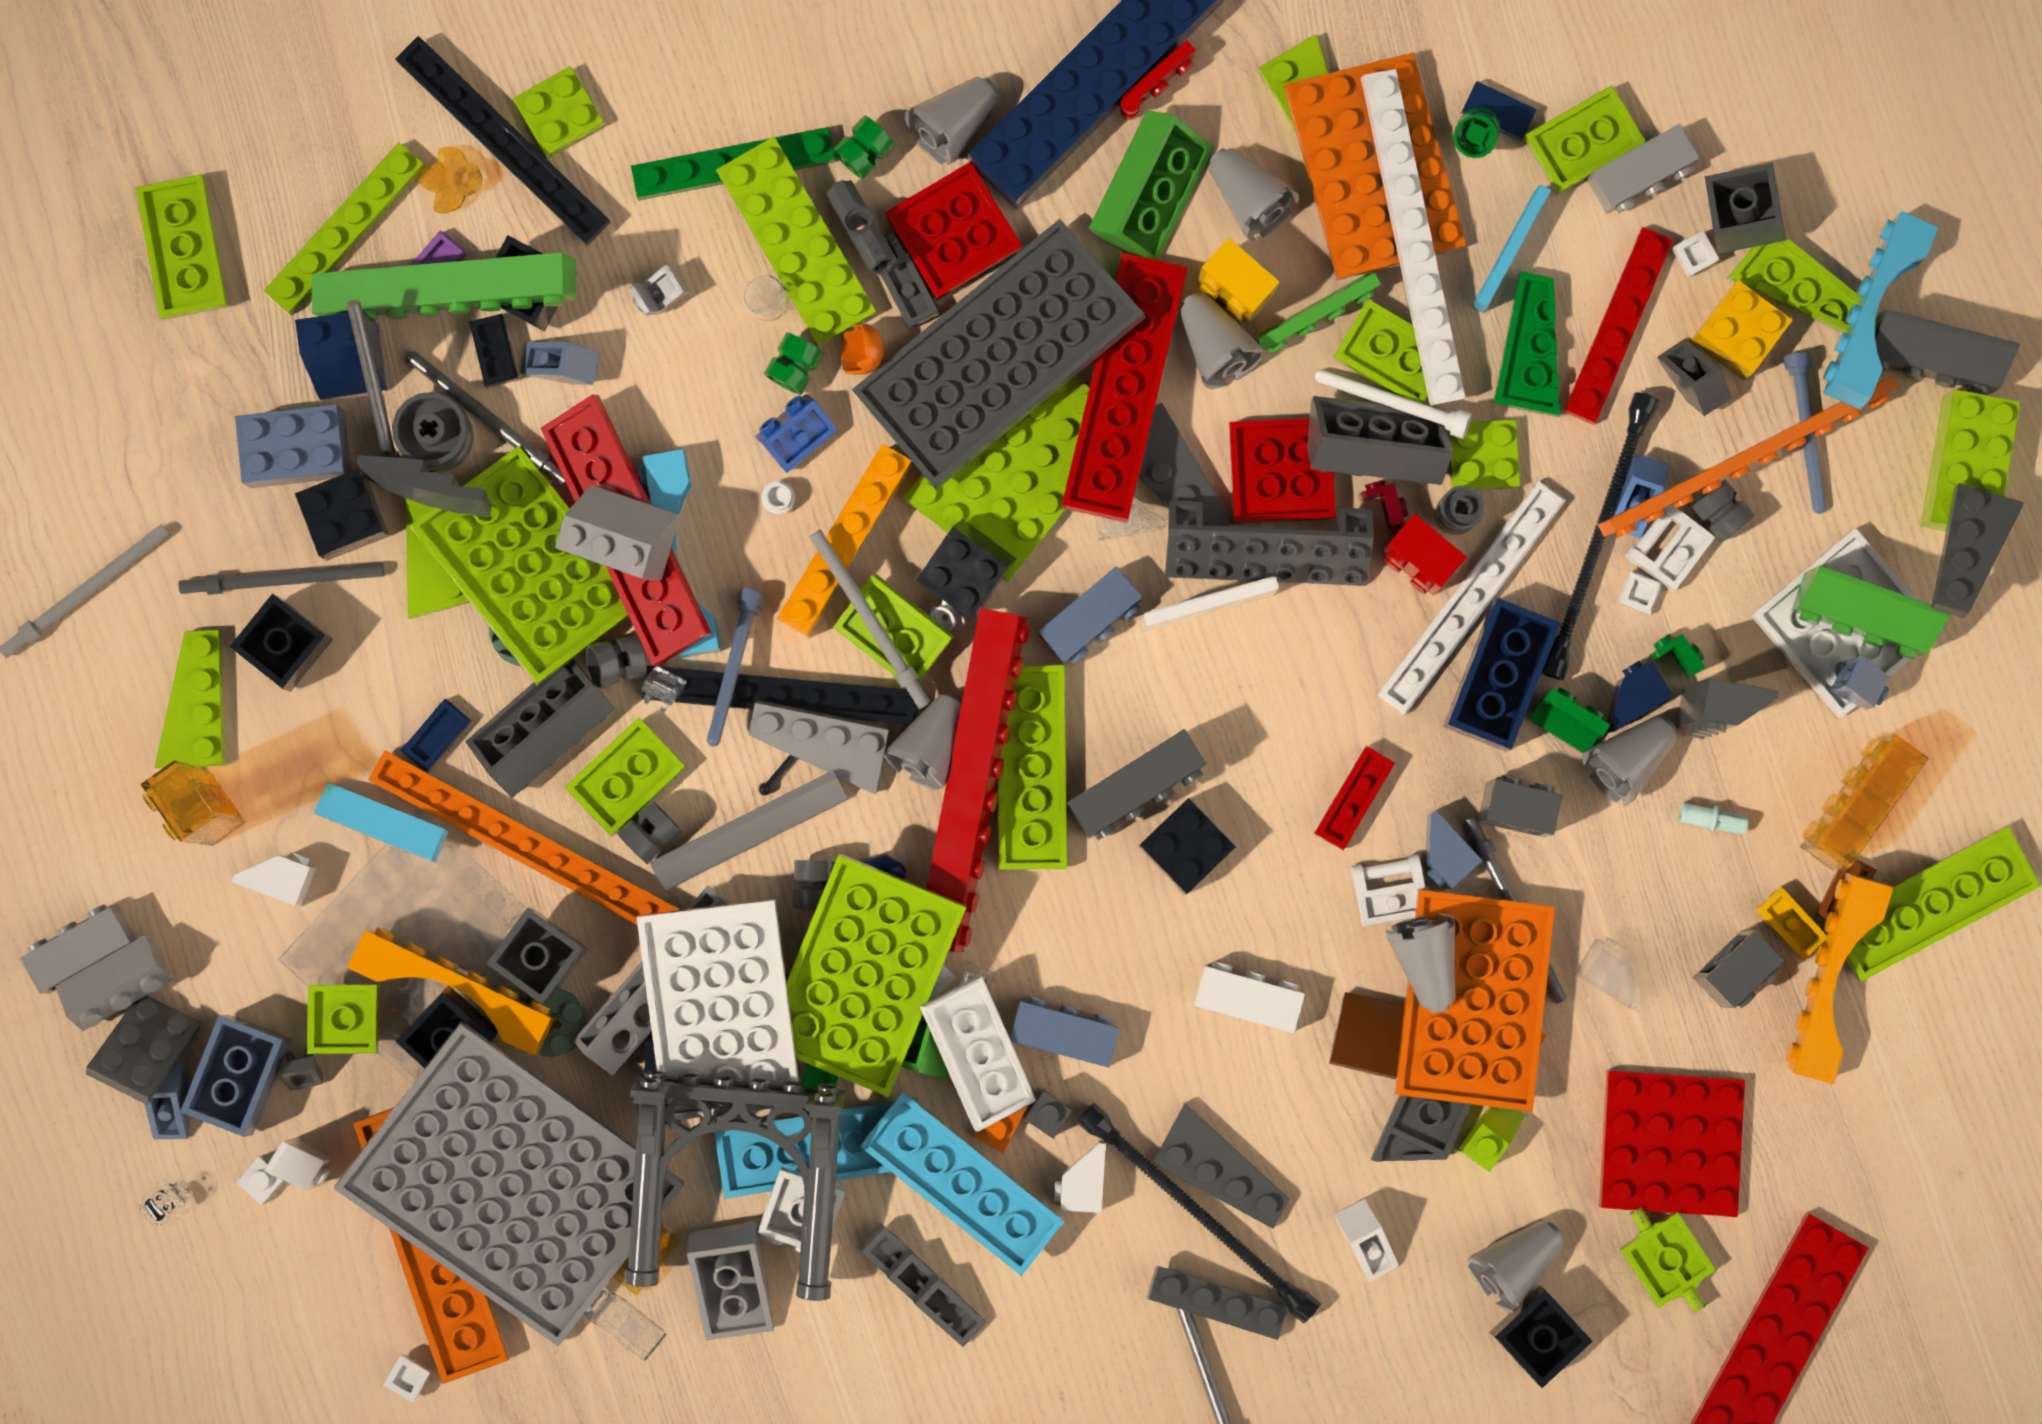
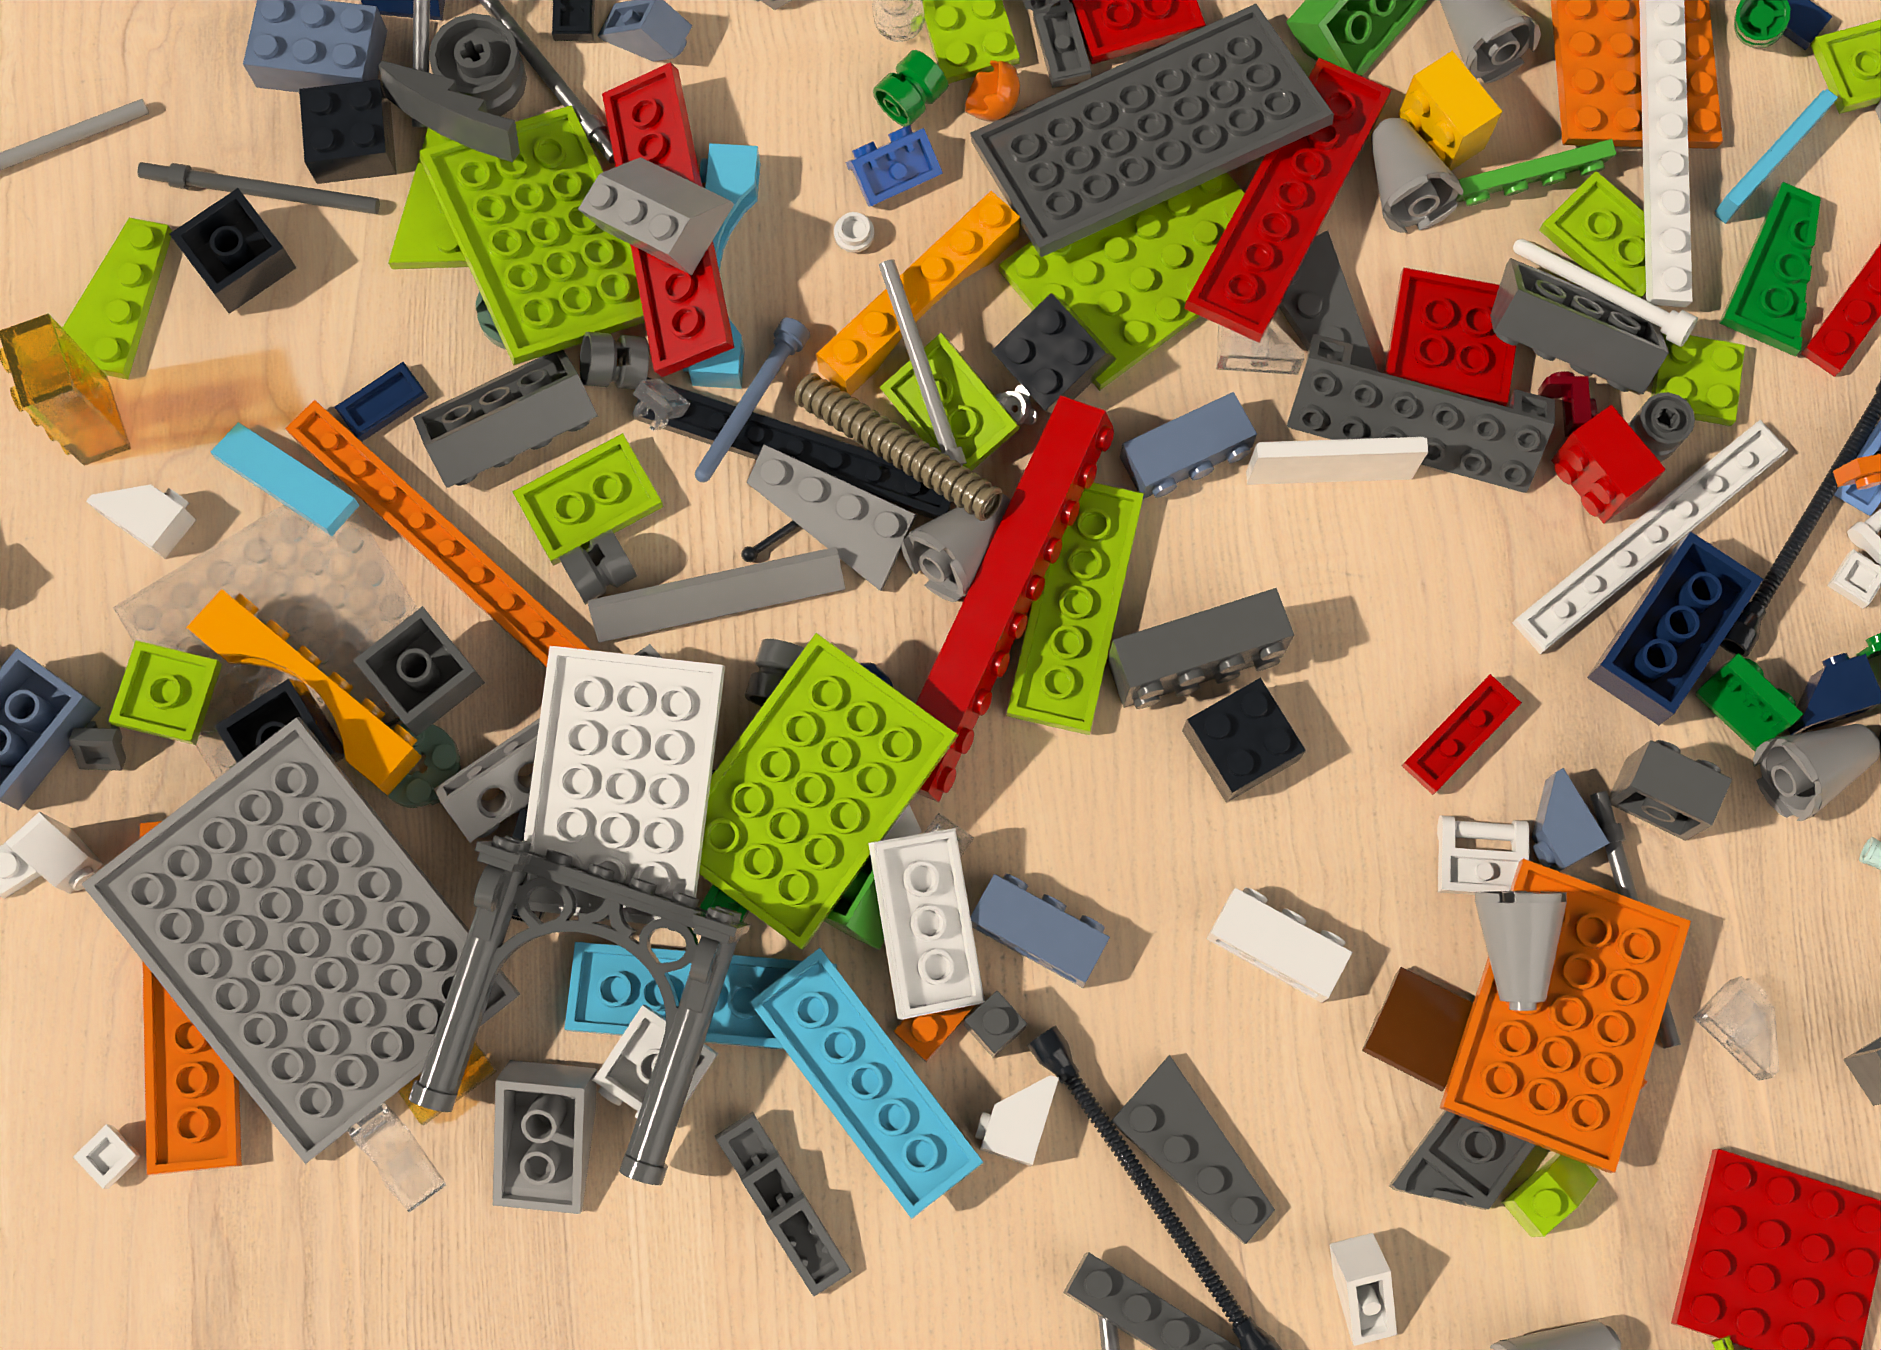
camera: 15 degrees right, 10 degrees down
(860, 678) = (898, 447): none -> dark tan piece

